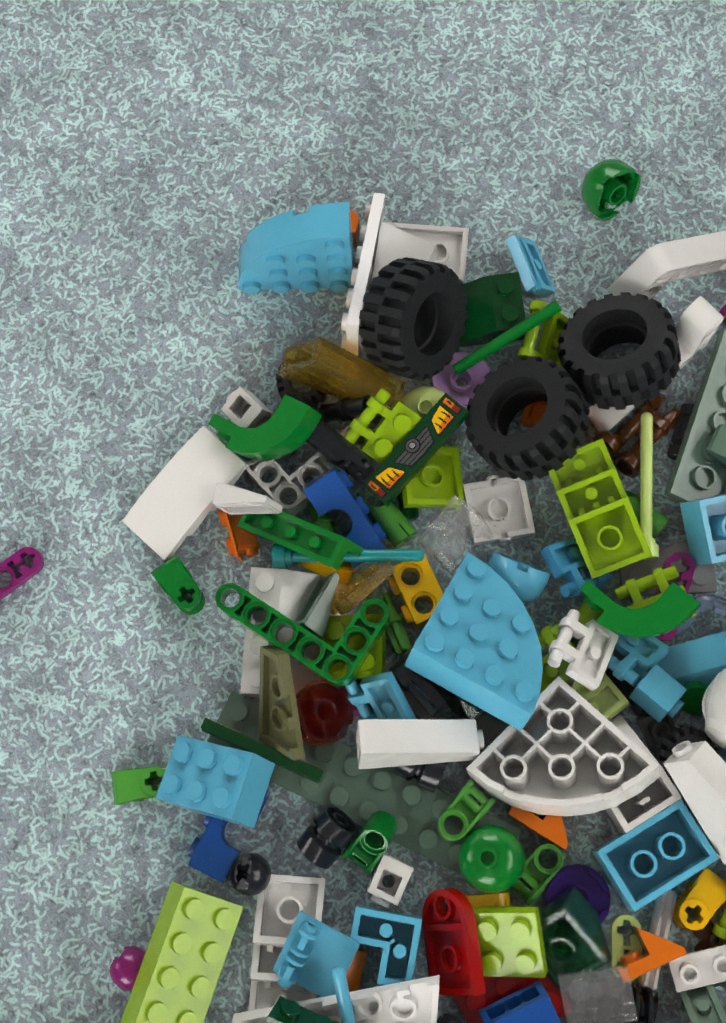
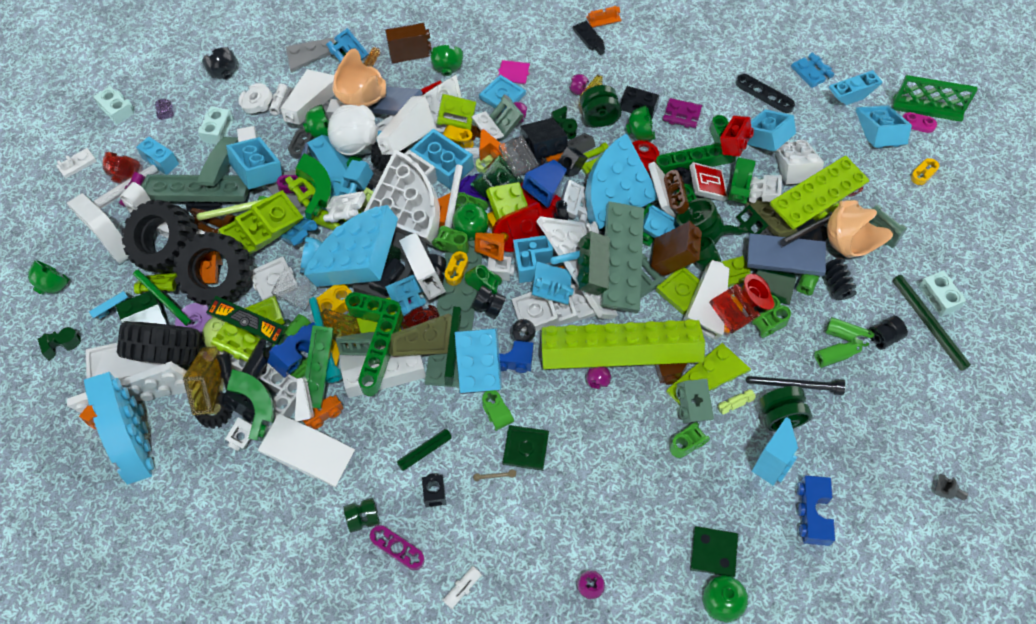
camera: 115 degrees left, 15 degrees down
(42, 773) = (512, 473): none -> dark tan hinge
(44, 648) = (437, 498): none -> black brick
(61, 543) = (353, 515): none -> dark green wheel
(70, 809) = (525, 447): none -> dark green tile
(128, 659) = (424, 449): none -> dark green axle
(177, 582) = (368, 435): green piece -> none
(415, 798) = (460, 269): none -> yellow beam
(426, 879) = (490, 245): none -> orange slope
(492, 202) = (66, 338): none -> dark green leg
(549, 844) = (453, 196): none -> white bar

